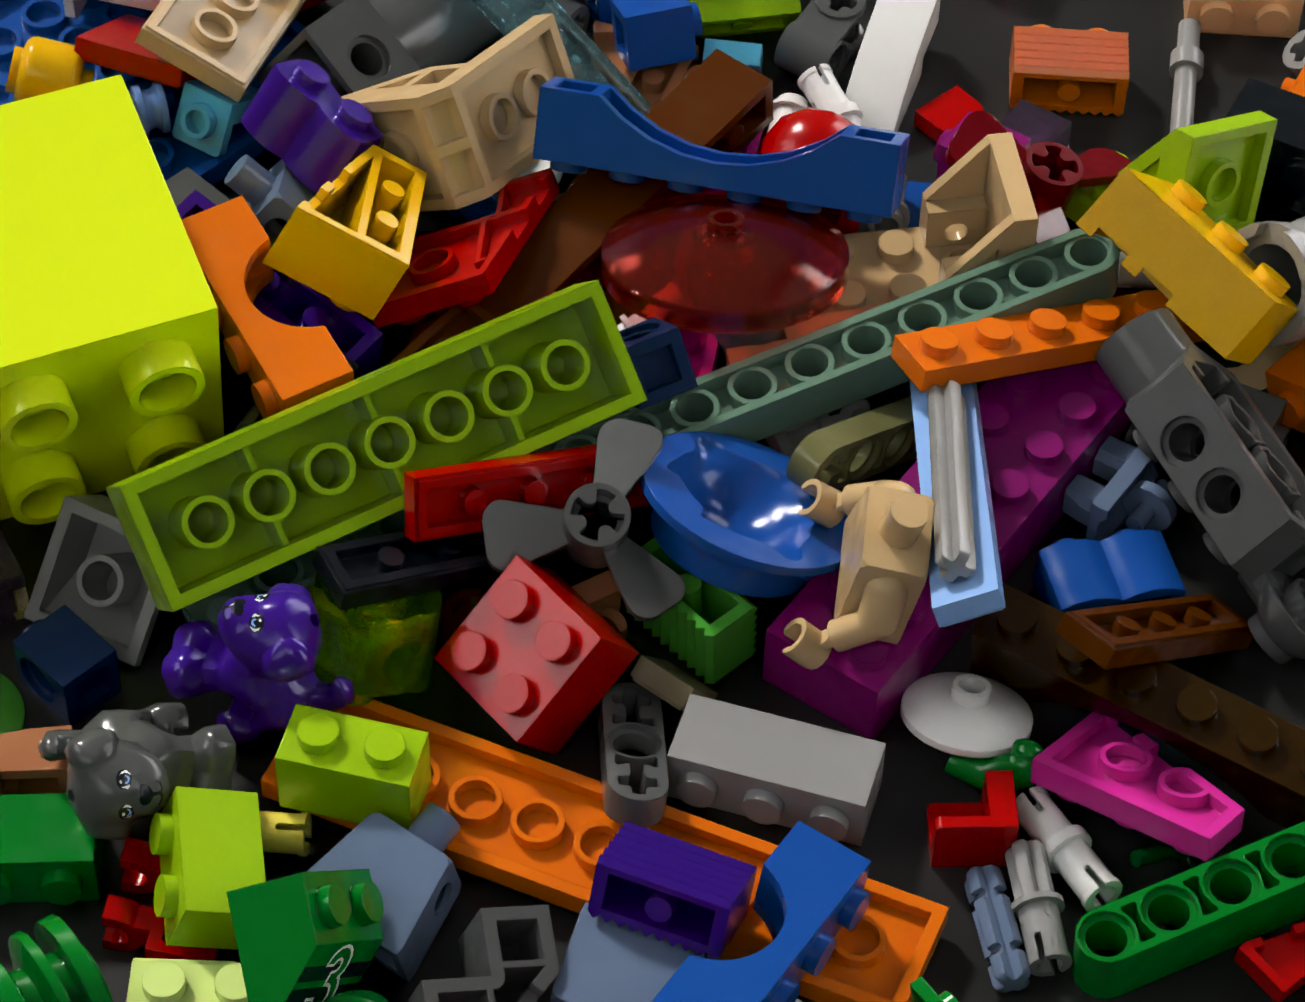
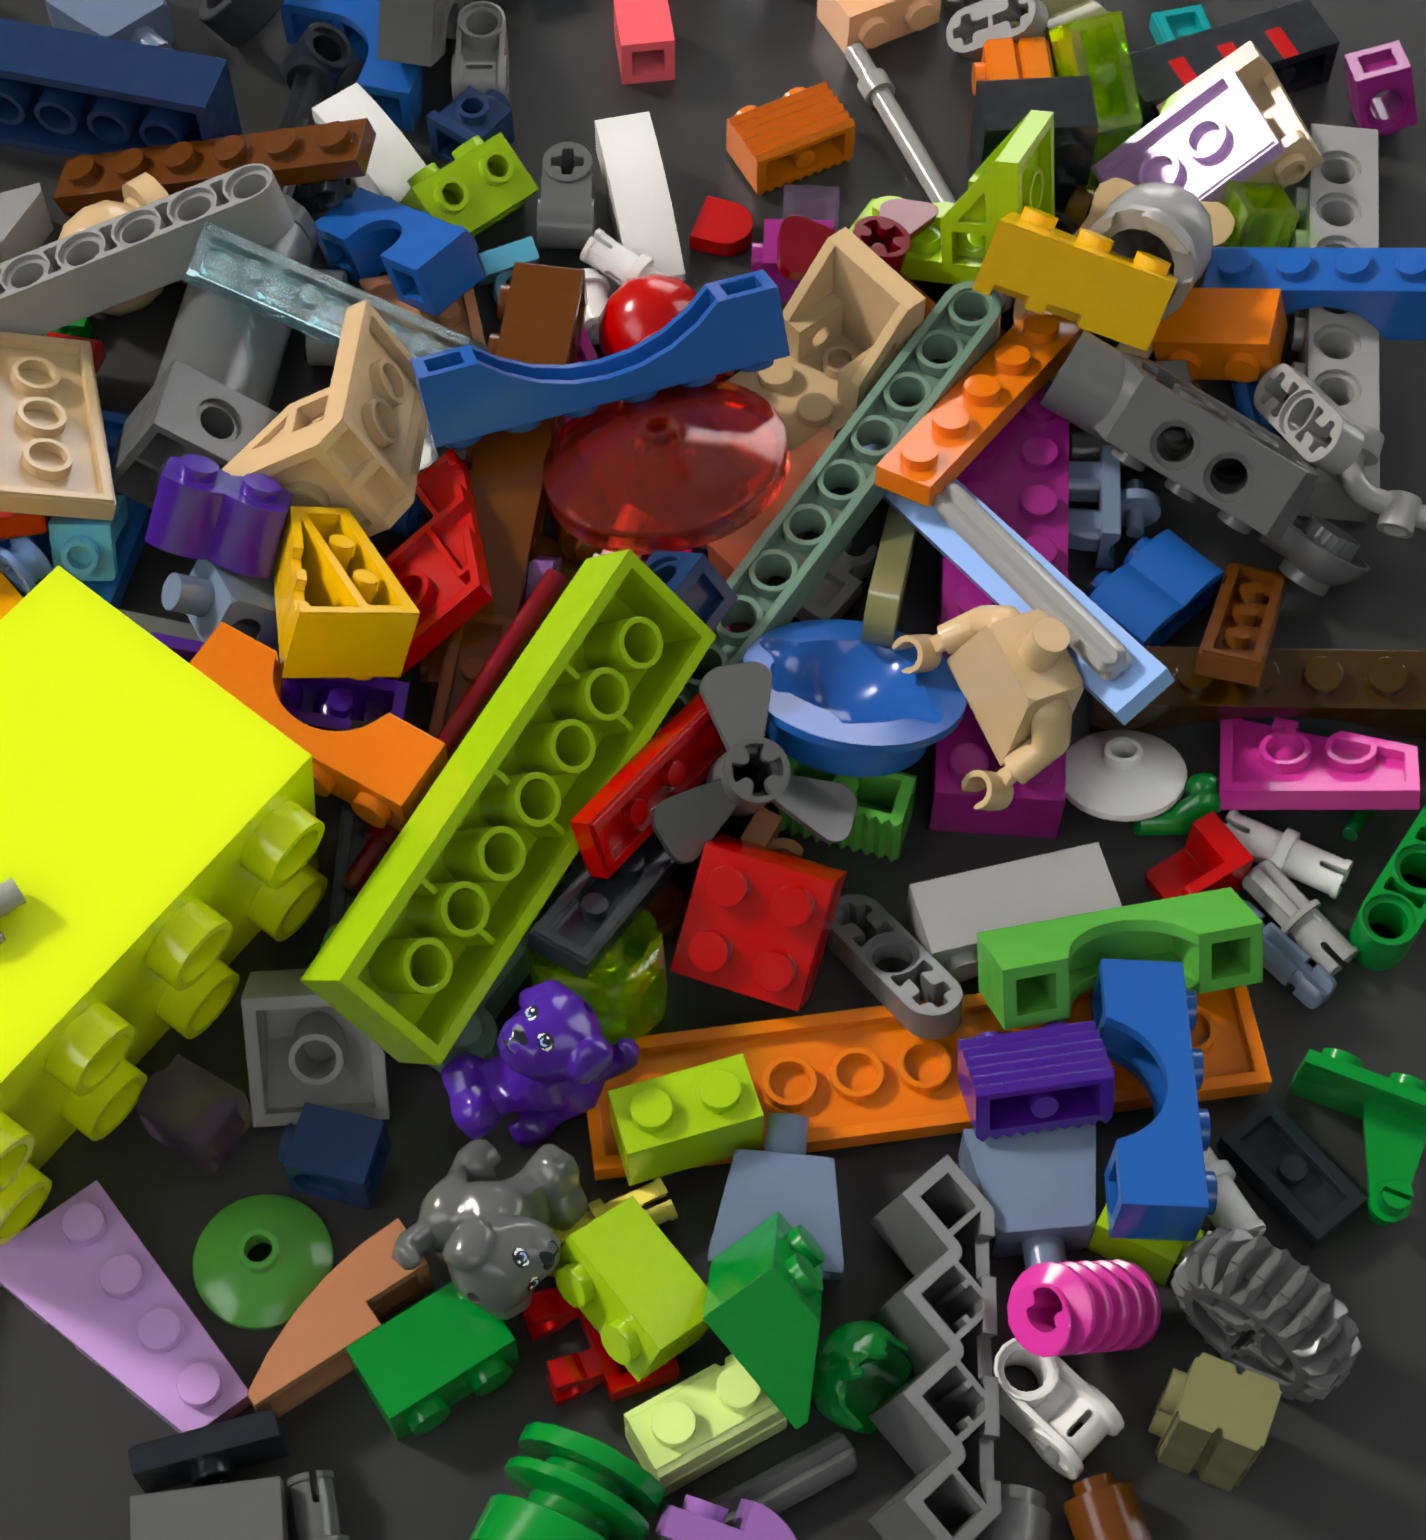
camera: 30 degrees left, 10 degrees up
(668, 681) = (875, 880): dark tan tile -> none
(752, 809) = (1041, 967): none -> bright green arch

